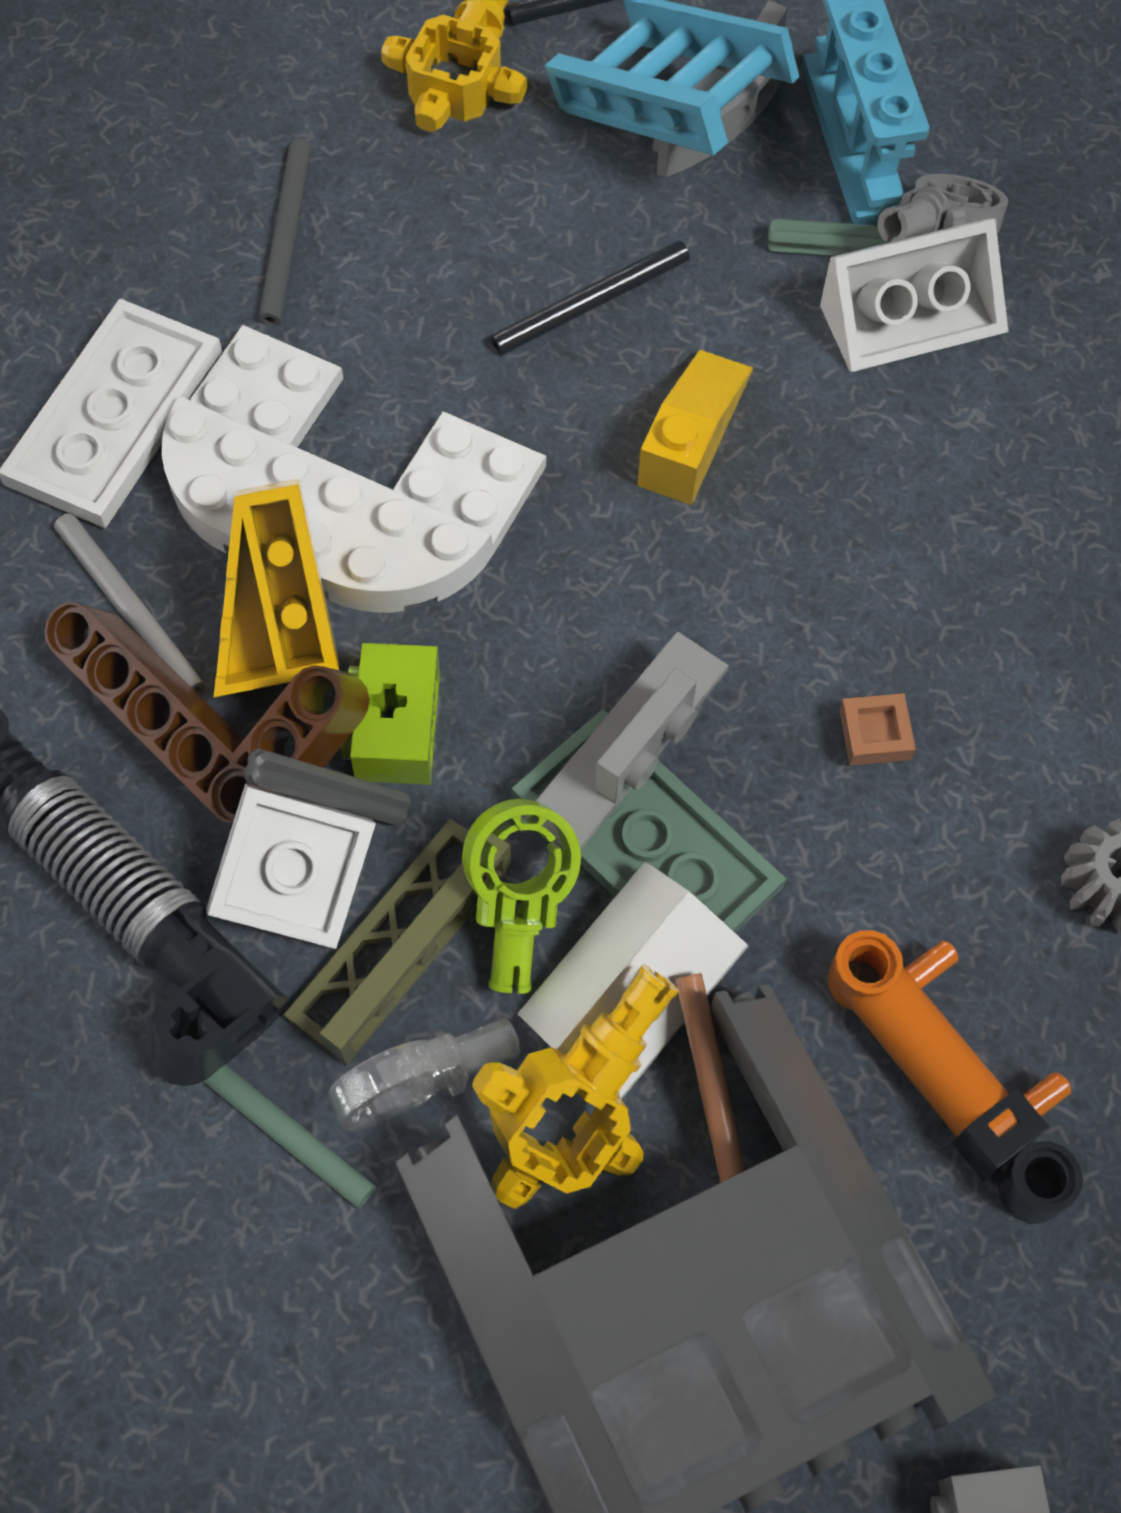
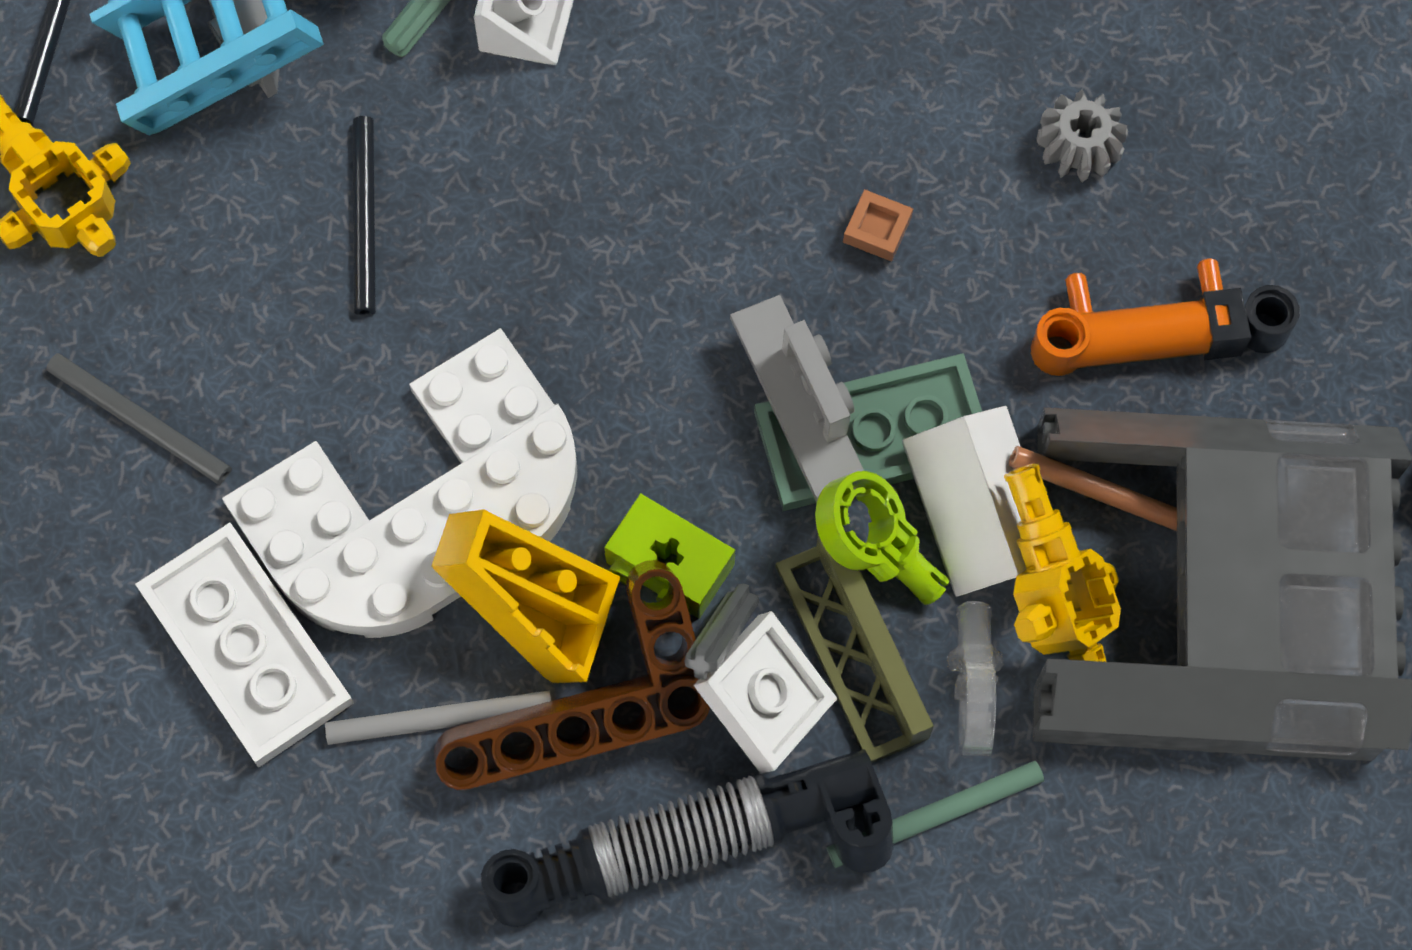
camera: 60 degrees left, 5 degrees up
(691, 426) = (540, 203): yellow slope -> none

